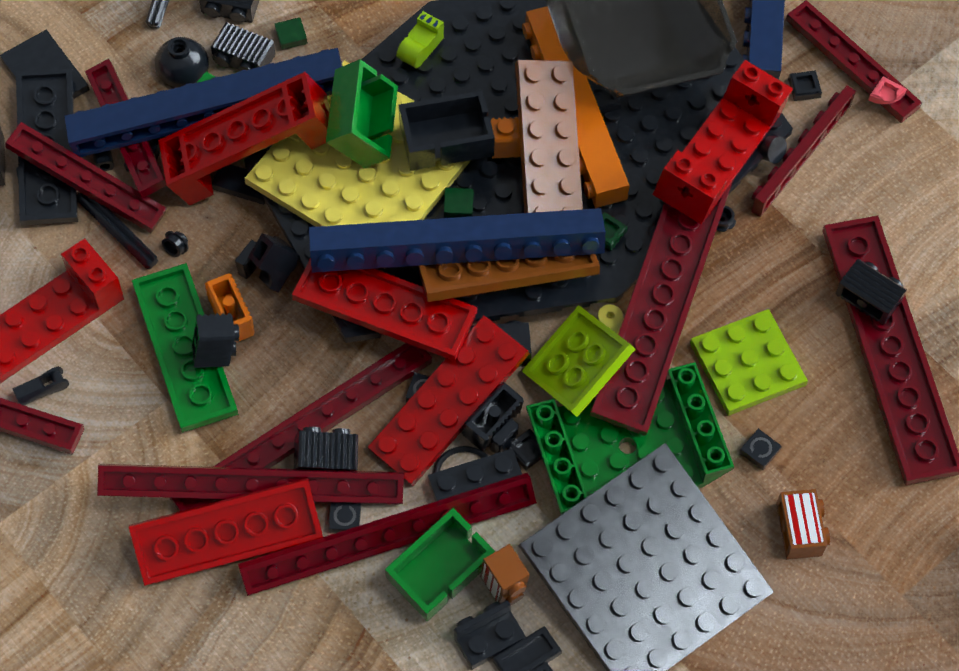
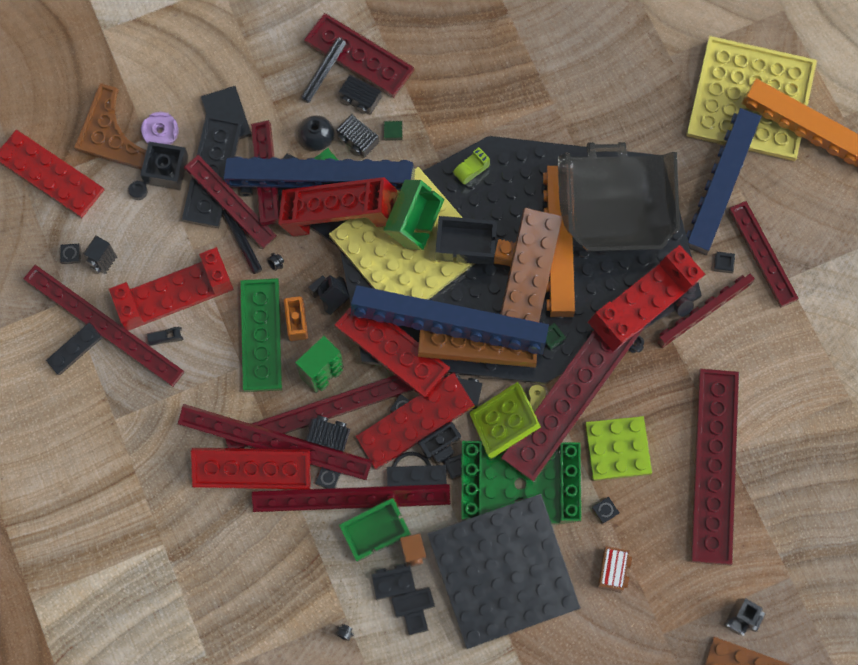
camera: 20 degrees right, 10 degrees up
(214, 340) = (278, 341): black brick -> none
(286, 356) = (320, 365): none -> green piece
(458, 202) = (461, 289): dark green tile -> none
(871, 291) = (713, 425): black brick -> none
(887, 92) = (776, 285): coral tile -> none

